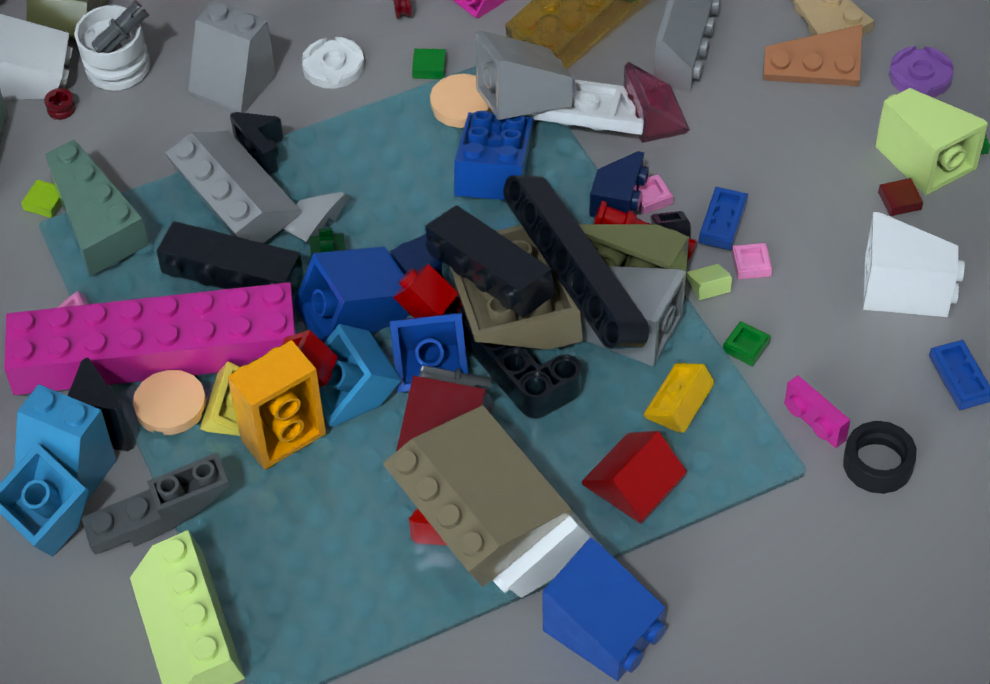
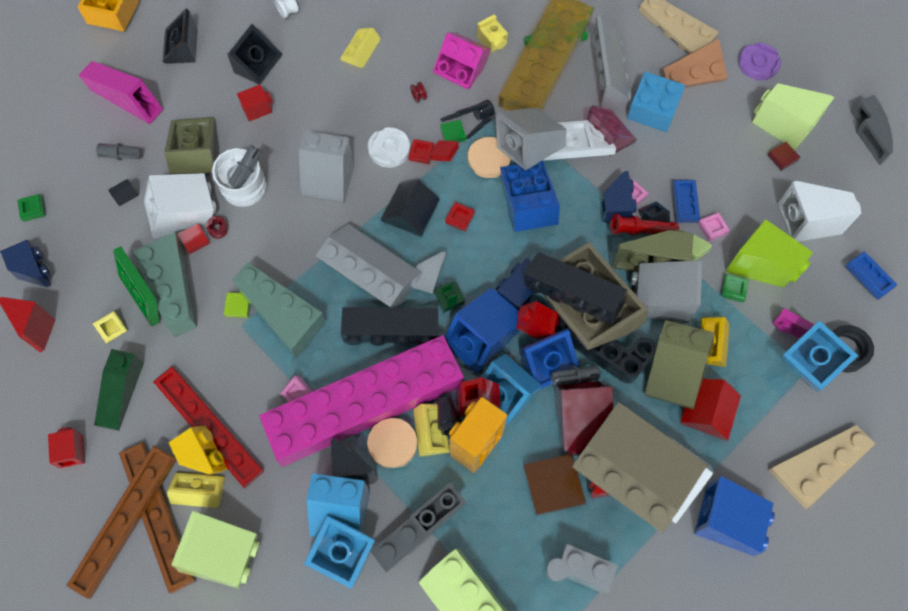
camera: 20 degrees left, 15 degrees up
(24, 110) = (193, 238): none -> red tile
(259, 137) = (367, 222): black slope -> none
(327, 136) = (411, 207): none -> black slope
(352, 610) = (582, 568): none -> light grey hinge
(365, 509) = (554, 484): none -> reddish brown tile
(375, 77) = (421, 151): none -> red tile
(388, 162) = (460, 216): none -> red tile
(404, 81) = (444, 151): none -> red tile
(470, 42) = (481, 111): none -> black plant
(576, 262) = (631, 274): black beam -> none
(610, 403) = (679, 364): none -> olive slope
(734, 85) = (655, 101): none -> dark azure brick
(769, 595) = (818, 468): none -> tan wing
(804, 307) = (771, 257): none -> lime slope
(814, 440) = (819, 356): none -> dark azure brick

